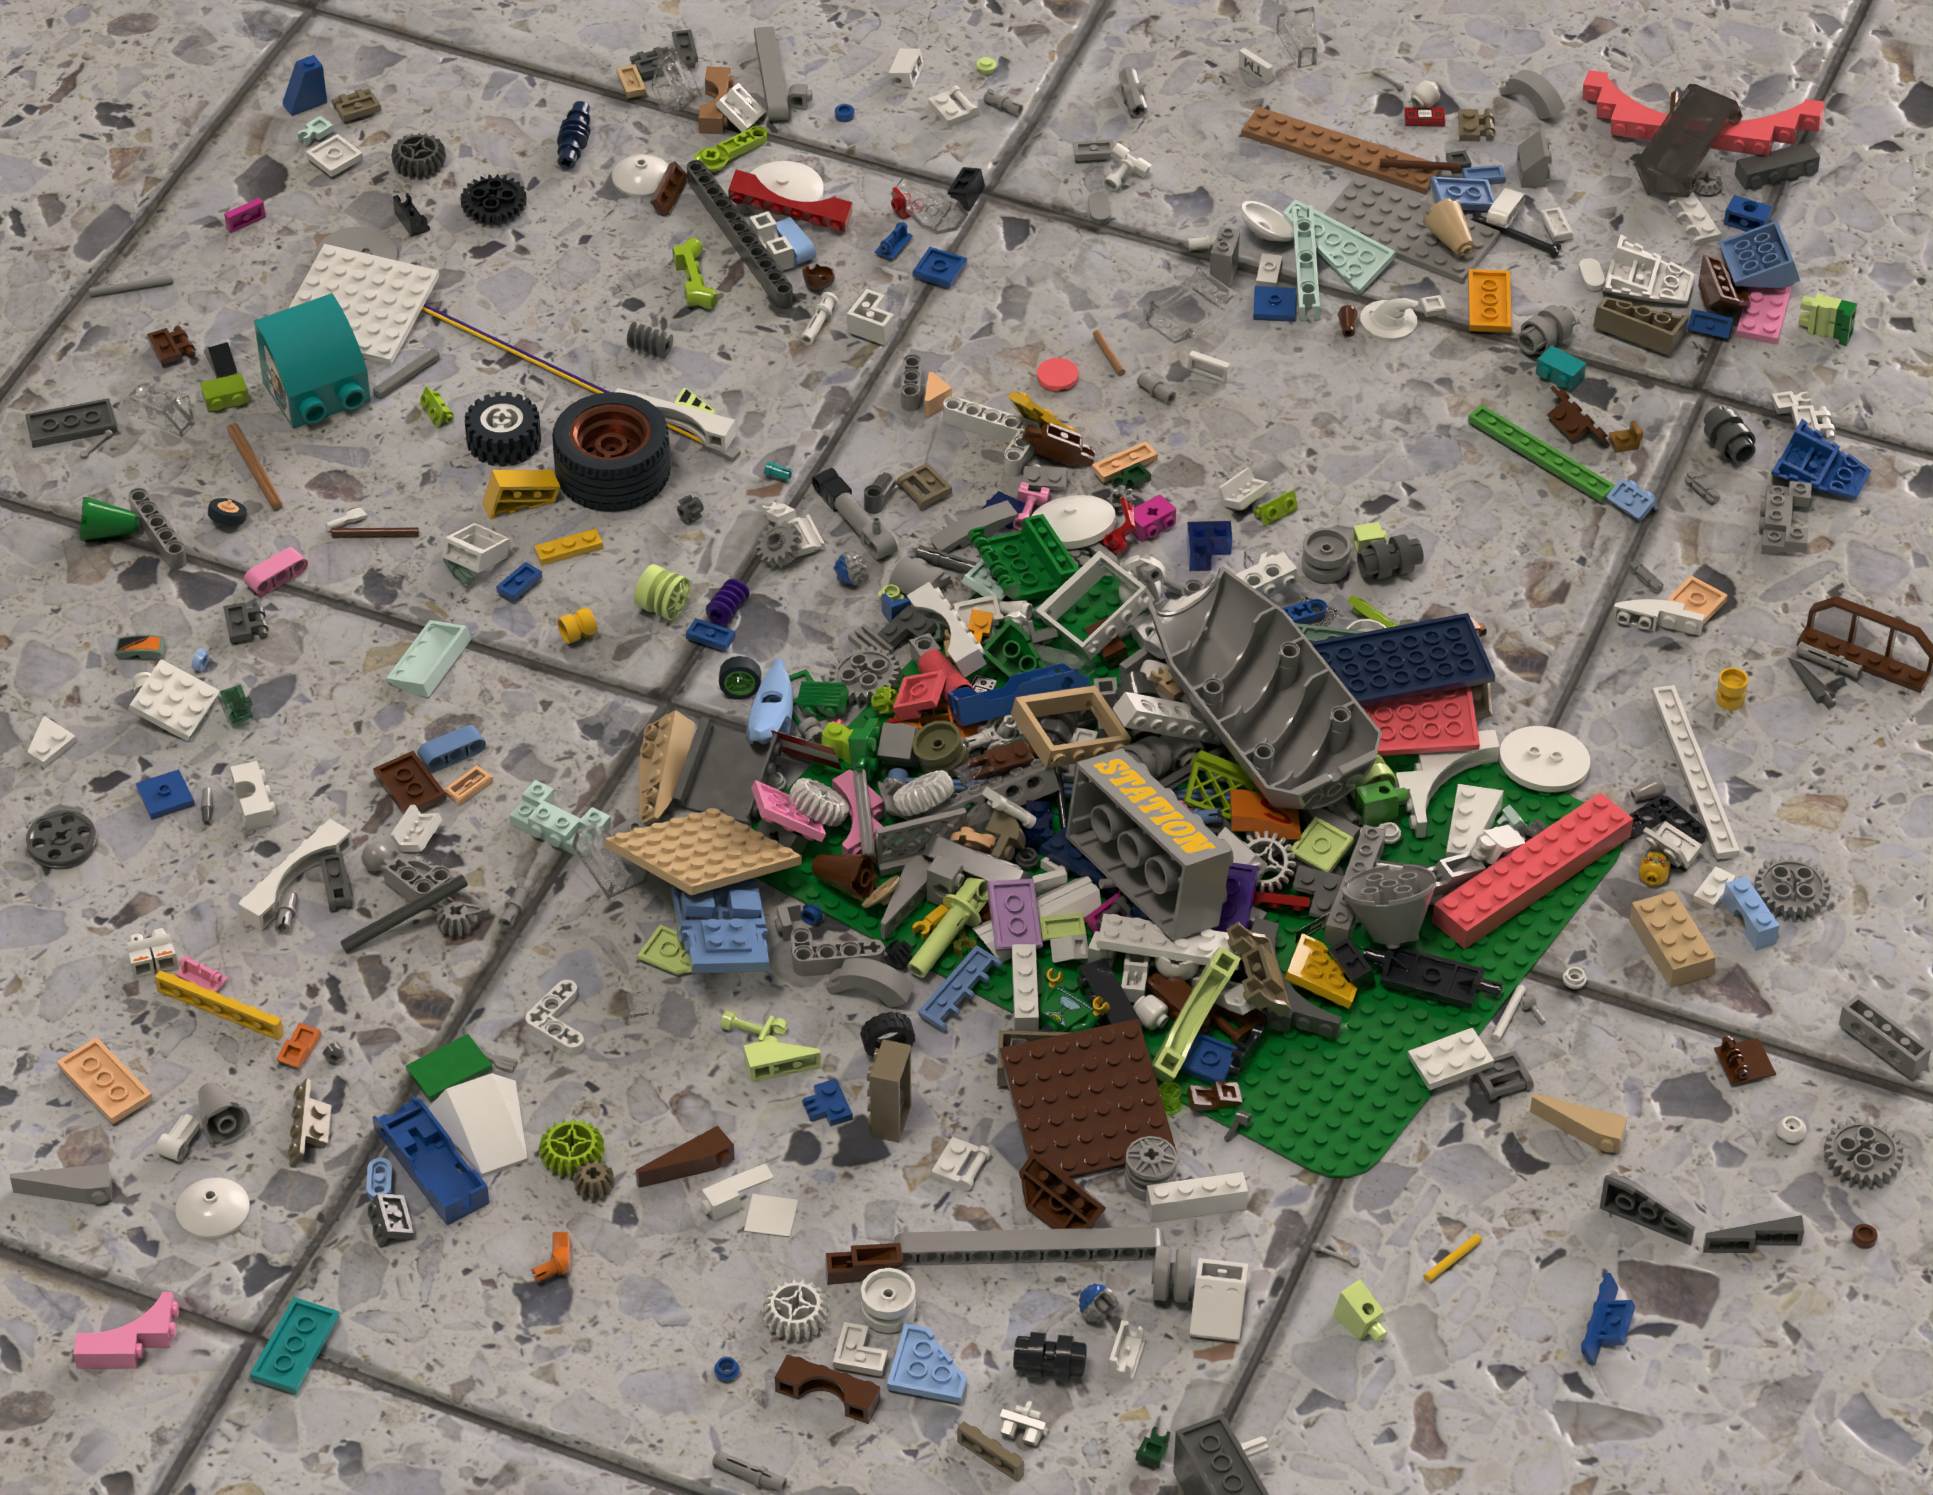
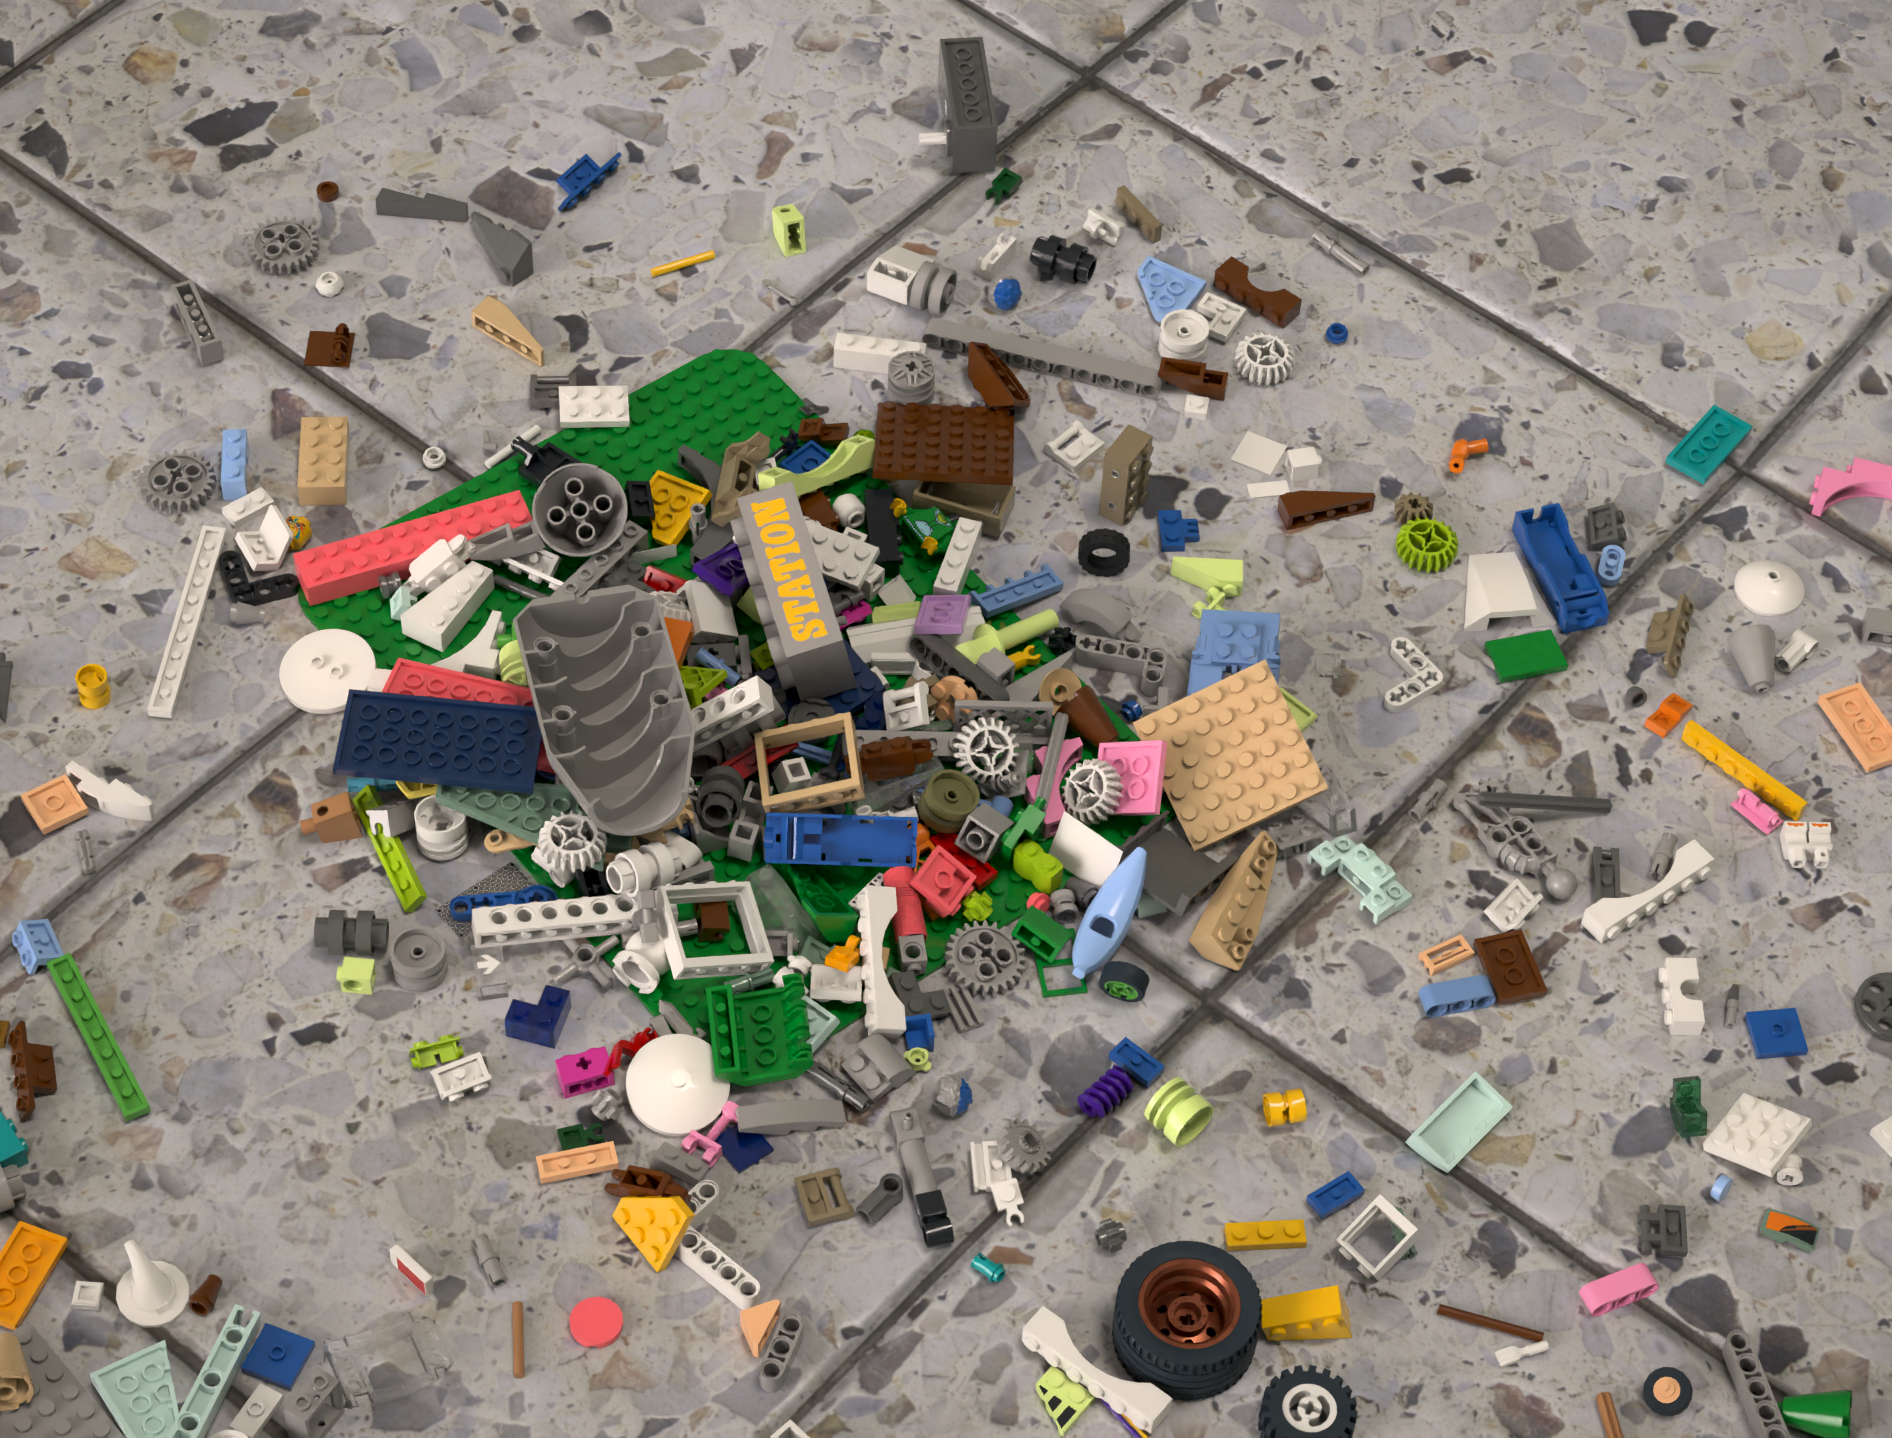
camera: 165 degrees left, 5 degrees up
(849, 1238) = (1196, 407): none -> white plate
(1284, 948) = (697, 516): none -> light grey pin

